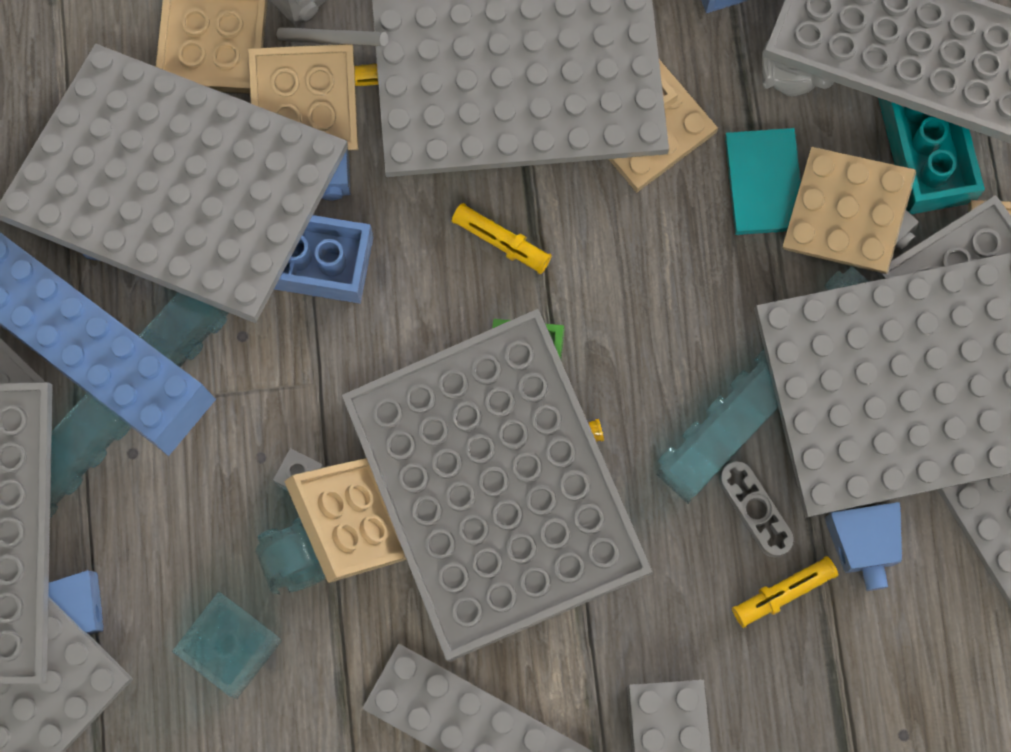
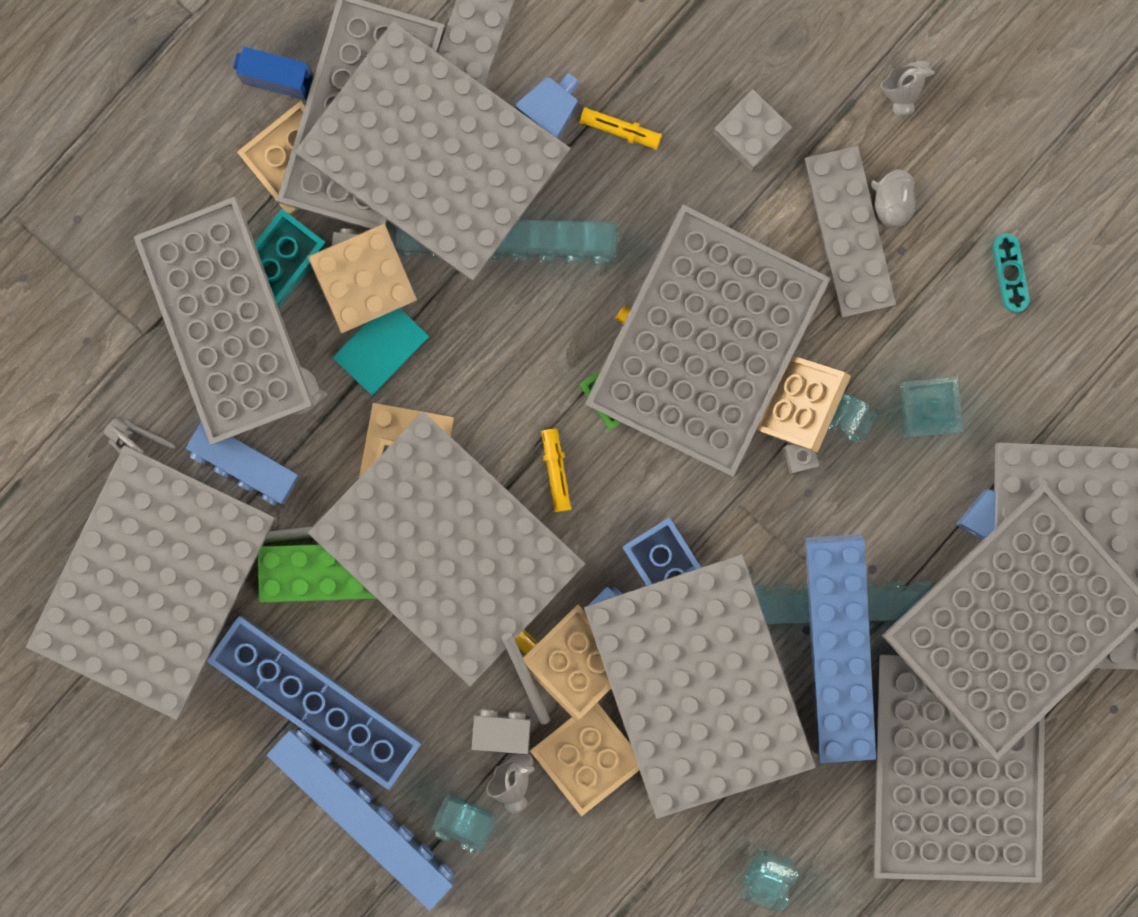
camera: 125 degrees left, 10 degrees up
(749, 481) = (585, 163): light grey beam -> none

